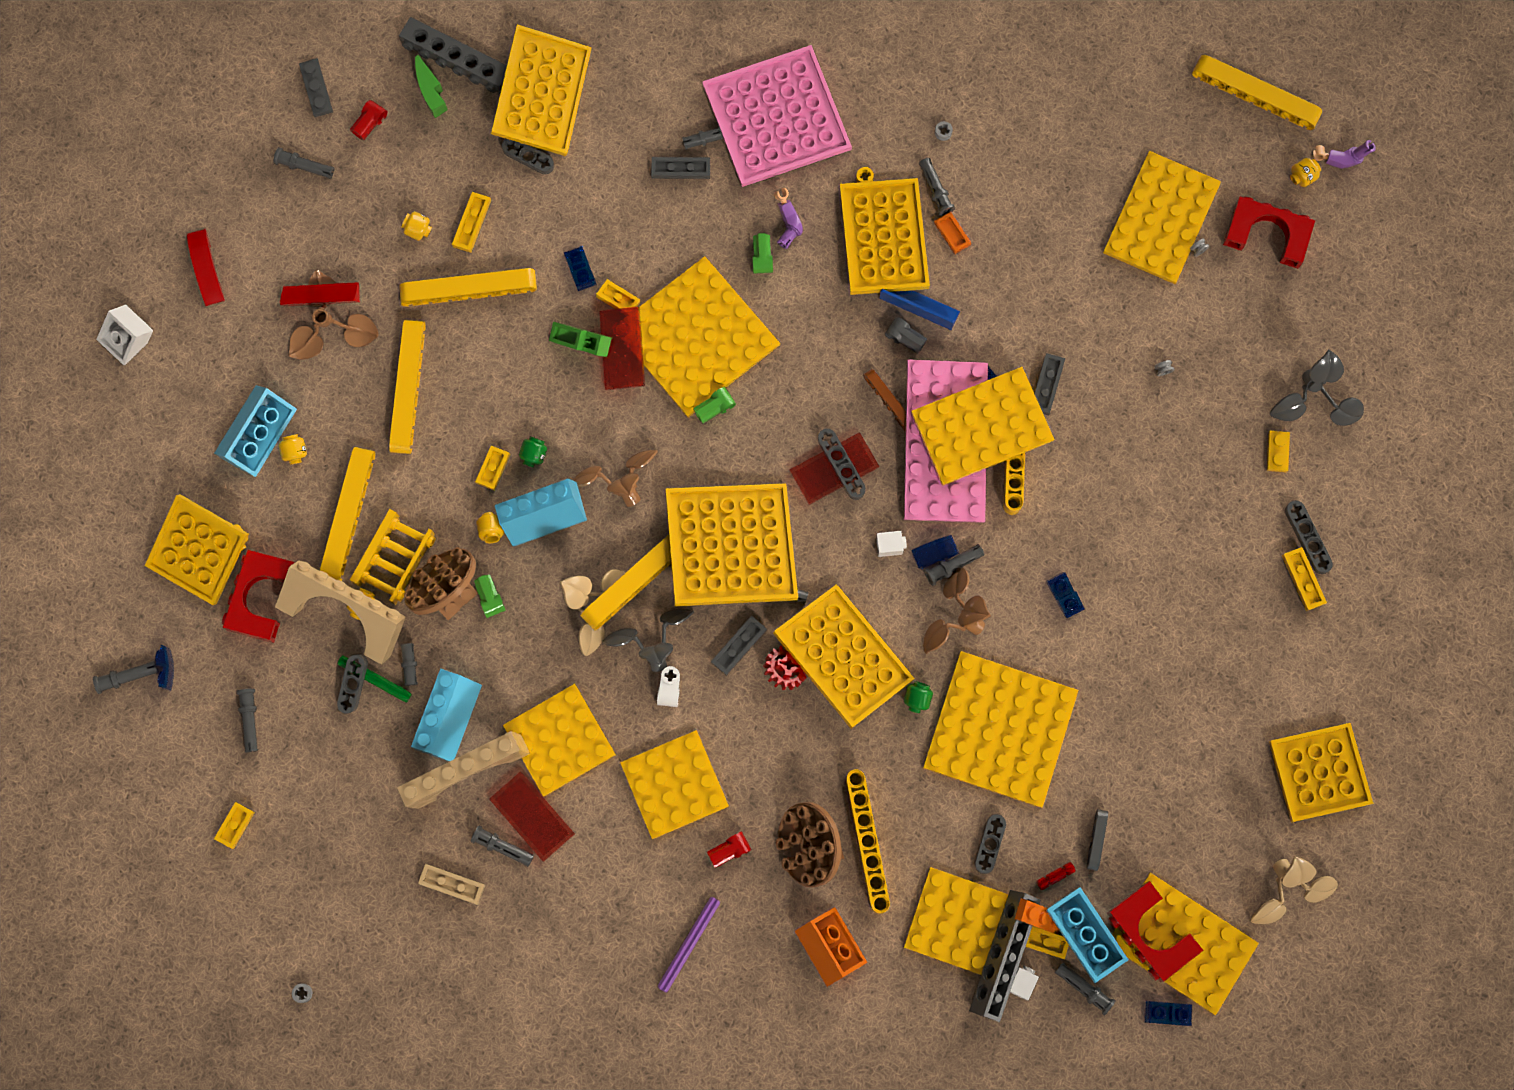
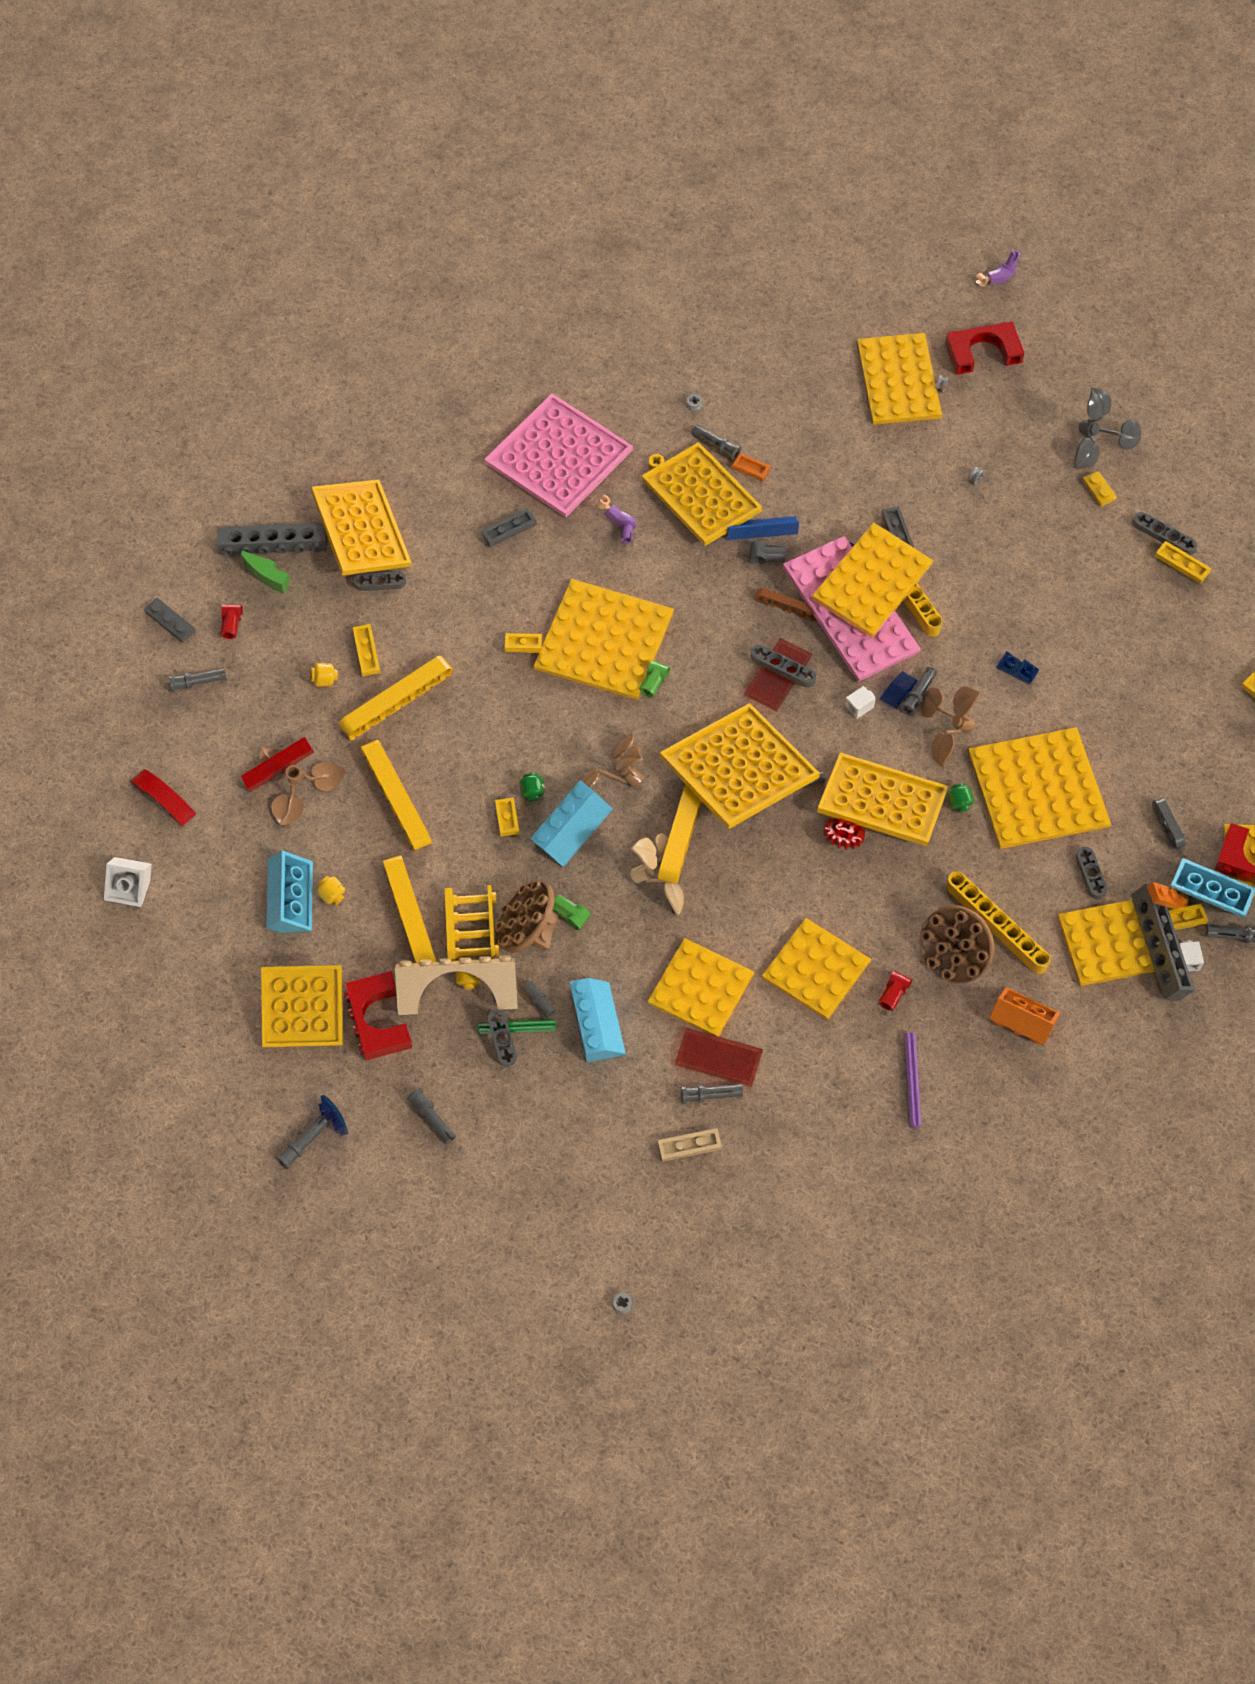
camera: 30 degrees left, 15 degrees down
(234, 825) = (475, 1204): yellow plate -> none
(429, 785) = (665, 1009): tan arch -> none
(489, 528) = (536, 860): yellow head -> none
(580, 268) = (477, 639): clear blue slope -> none
(580, 339) = (514, 685): bright green slope -> none
(624, 360) = (552, 675): clear red tile -> none
(657, 653) = (735, 878): dark grey plant -> none
(669, 691) = (763, 900): white piece -> none
(702, 138) = (511, 498): dark grey pin -> none
(738, 645) = (795, 838): dark grey plate -> none
(762, 254) = (617, 557): bright green piece -> none
(1056, 876) = (1156, 867): red axle -> none
(1257, 91) = (907, 262): yellow beam -> none
(1305, 172) = (981, 295): yellow head -> none

